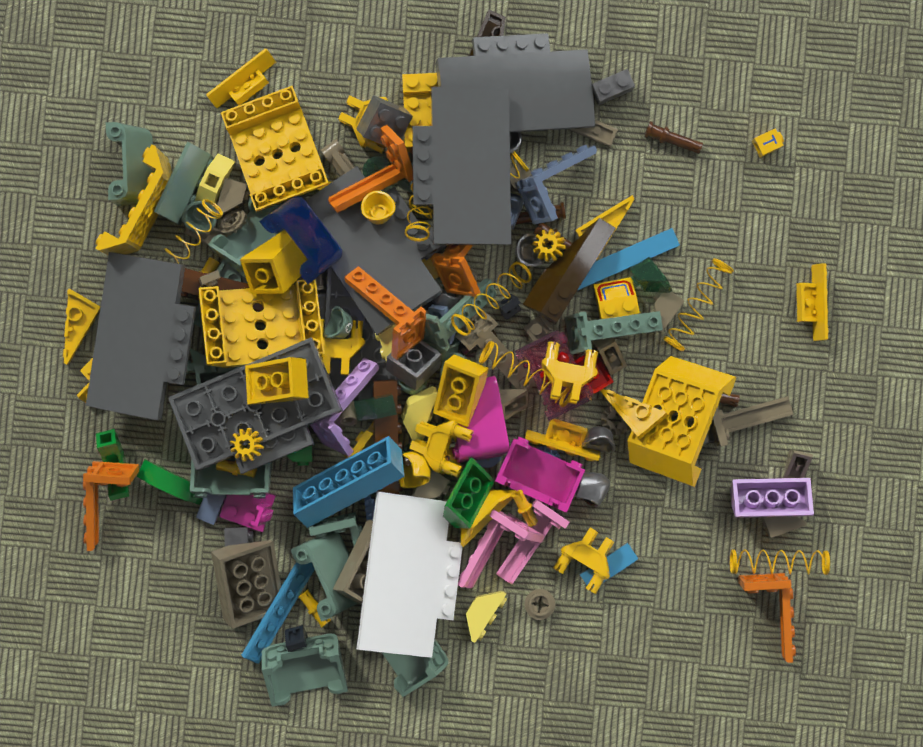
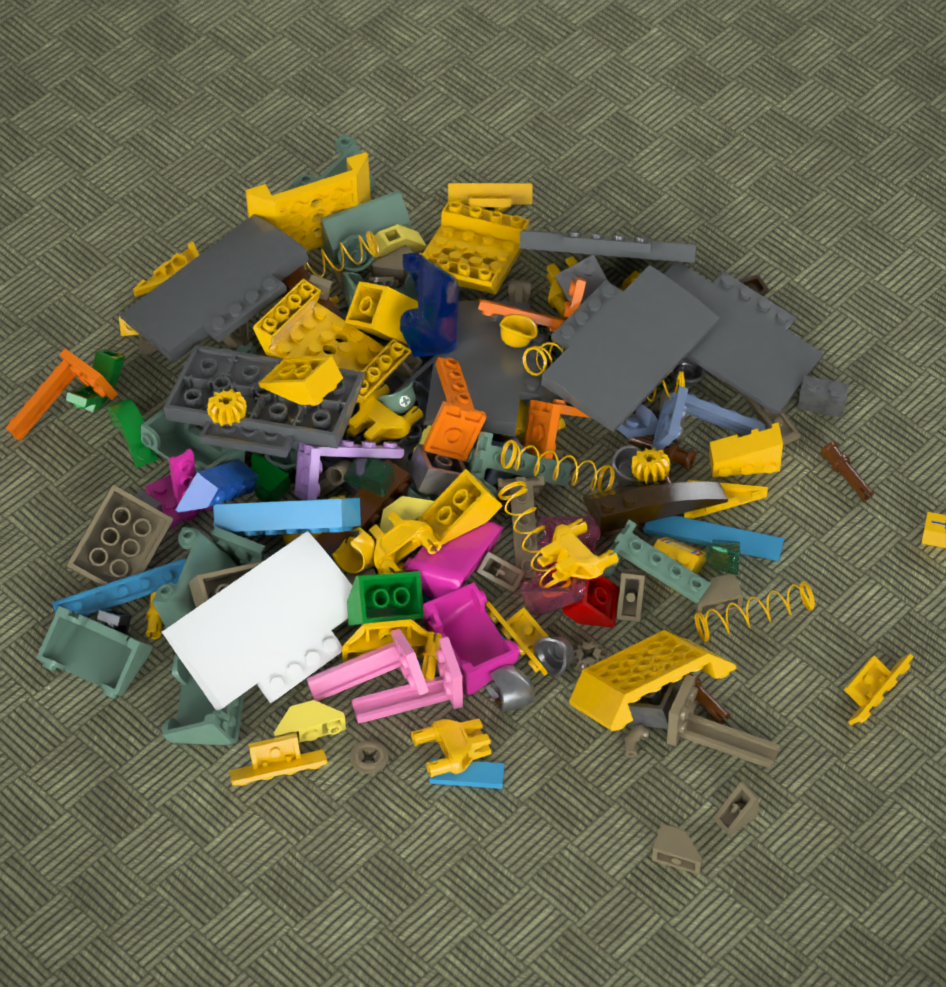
camera: 40 degrees right, 35 degrees down
(210, 508) = (147, 471): sand blue slope -> none
(232, 467) = (199, 449): yellow pin -> none
(286, 498) = (218, 485): none -> blue slope
(376, 75) = (608, 245): none -> dark grey slope
(487, 655) = (276, 758): none -> yellow bracket
(509, 307) = (569, 496): black bracket -> none
(599, 179) = (747, 454): none -> yellow wedge
(637, 415) = (611, 648): yellow wing -> none
(734, 565) = (687, 912): yellow piece -> none
(771, 497) = (687, 809): lavender slope -> none
(772, 583) = (619, 890): orange bracket -> none

